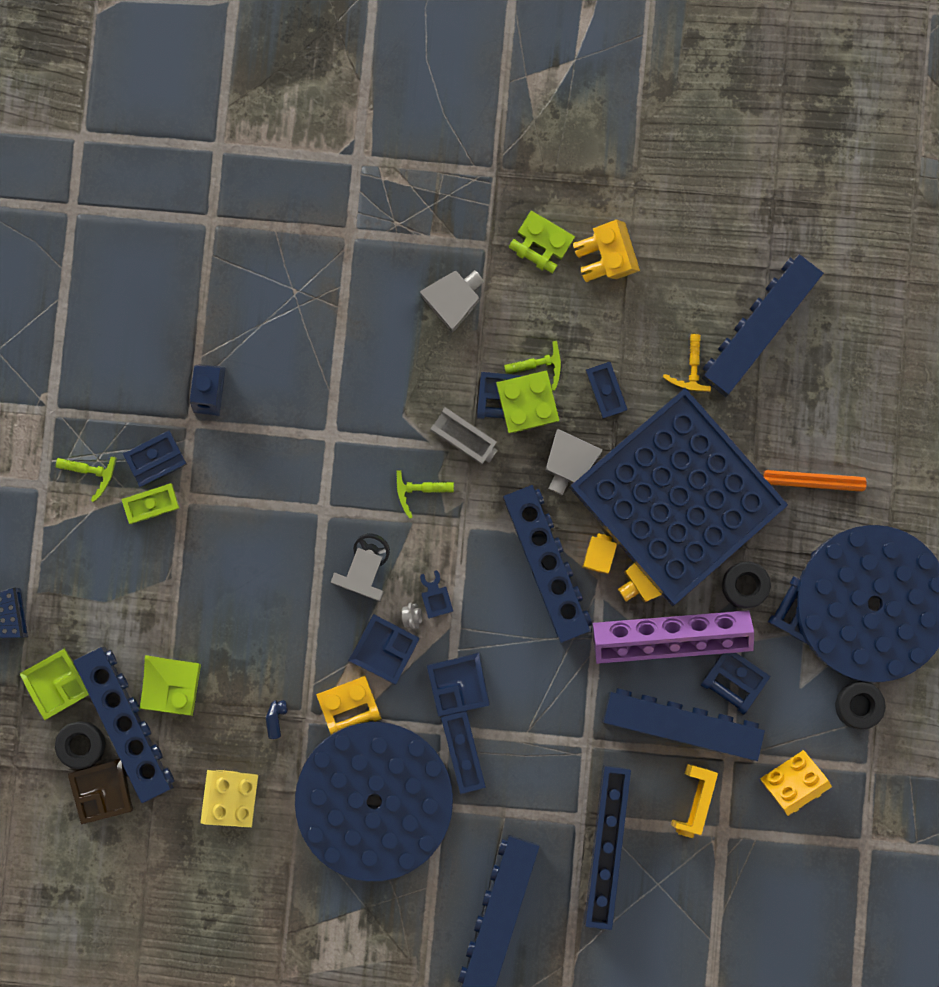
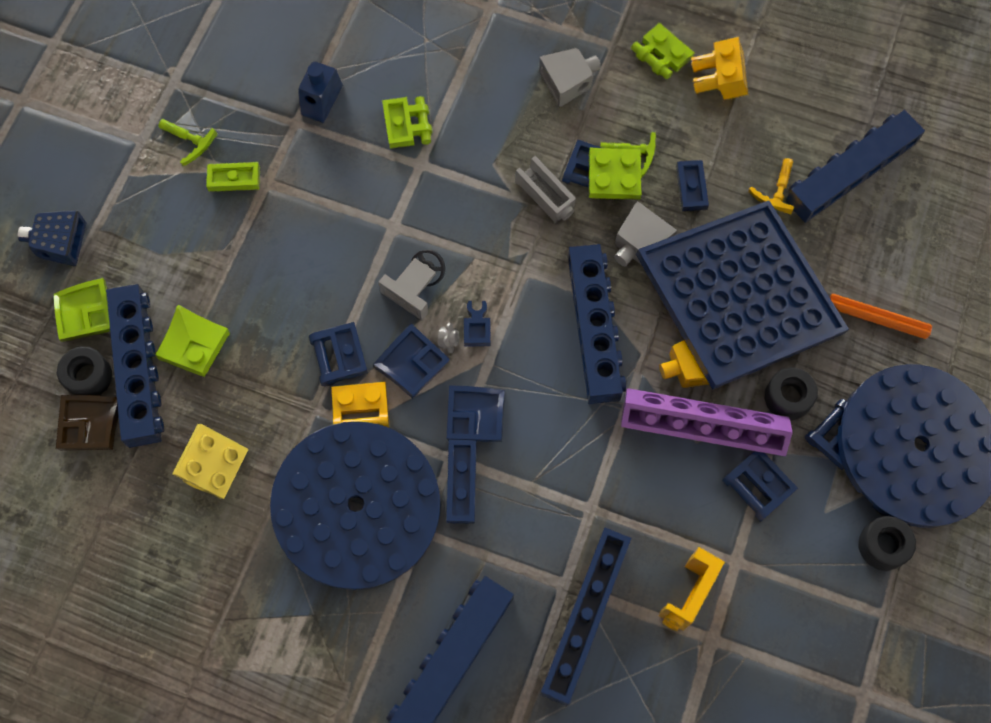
camera: 15 degrees right, 15 degrees down
(155, 459) = (251, 140): dark blue plate -> none
(272, 718) = (281, 396): dark blue arm -> none
(296, 399) = (398, 122): none -> lime plate
(319, 655) = (347, 353): none -> dark blue plate
(425, 487) = (495, 228): lime piece -> none
(600, 554) = (649, 328): yellow brick -> none
(684, 726) = (697, 515): dark blue brick -> none
(796, 782) = (804, 603): yellow plate -> none

